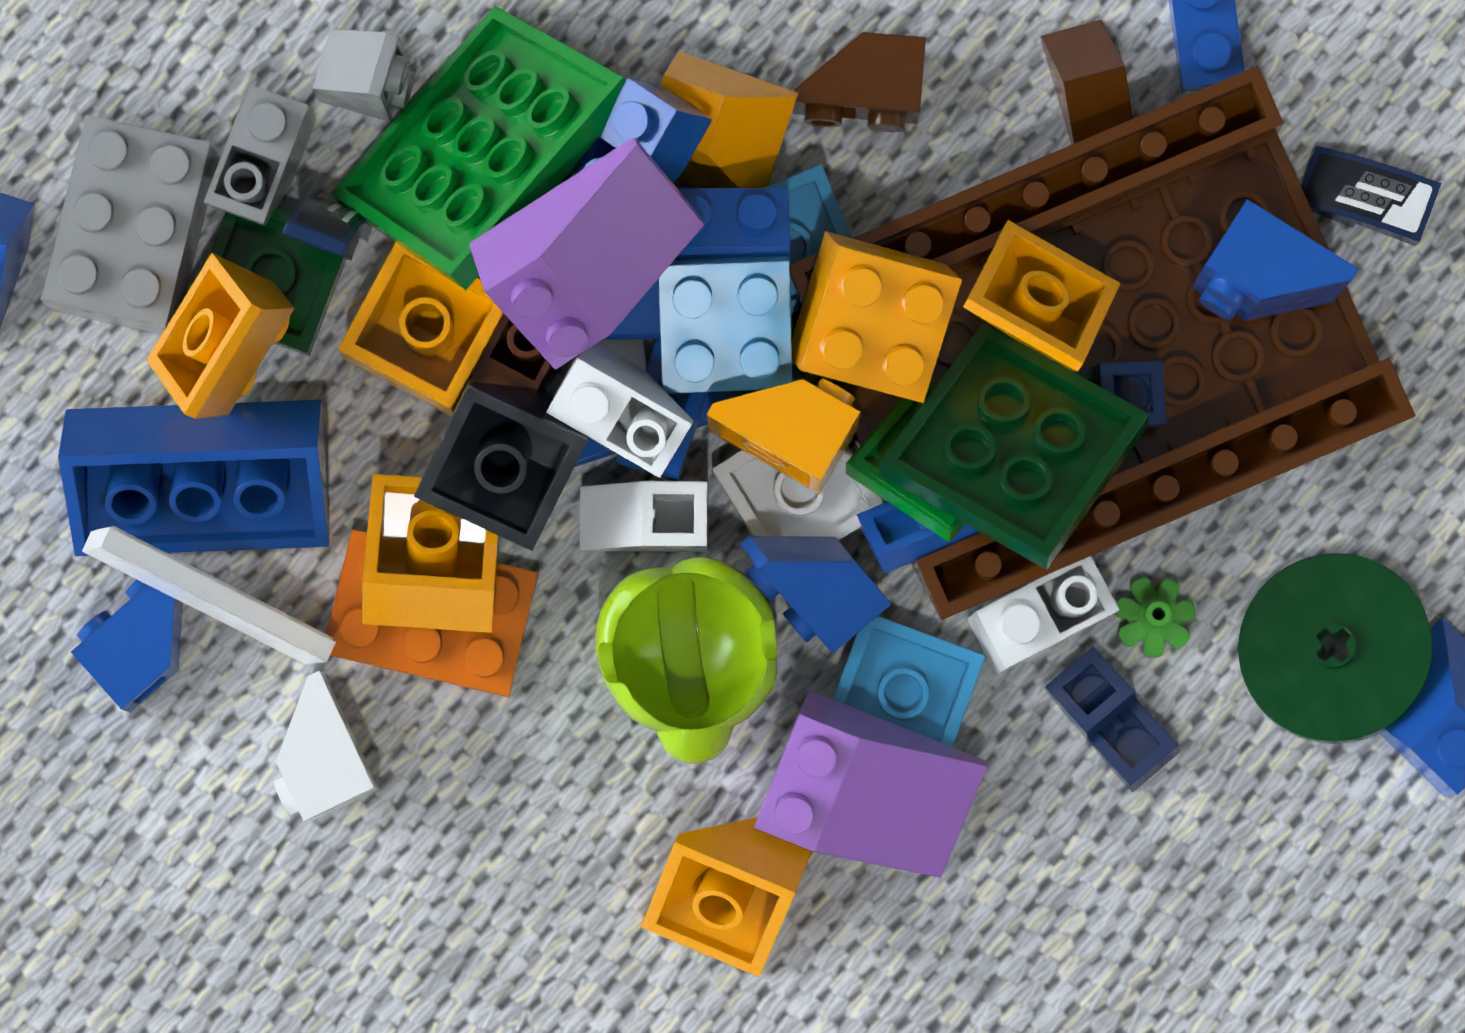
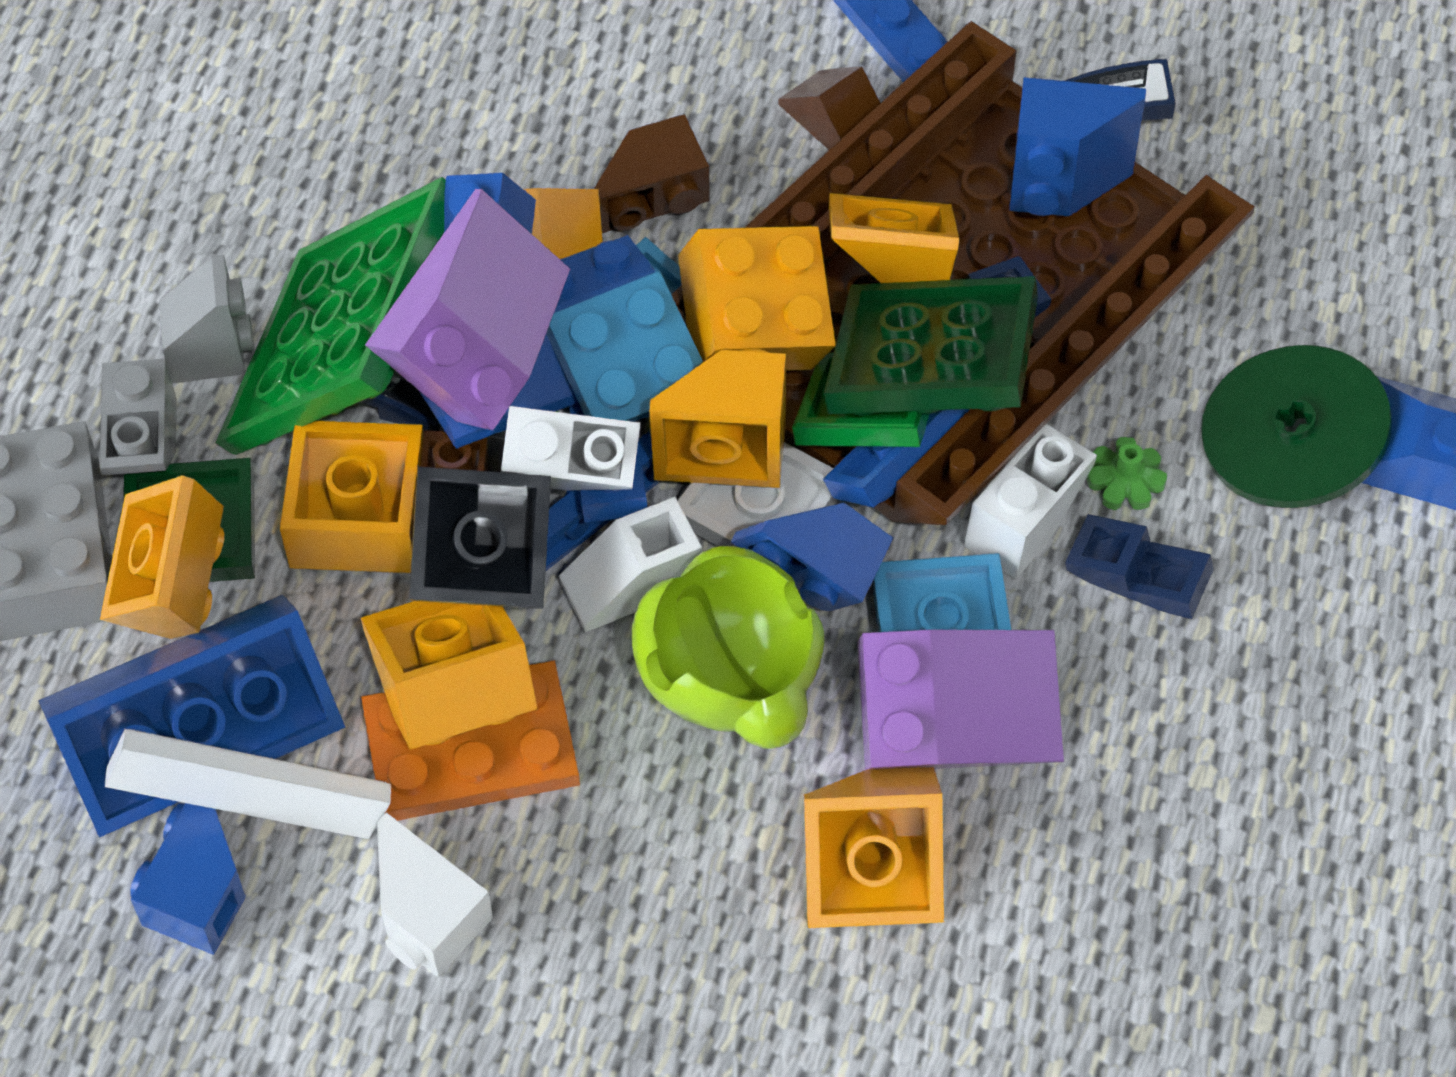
camera: 25 degrees left, 25 degrees down
(327, 226) = (227, 448): slope -> none

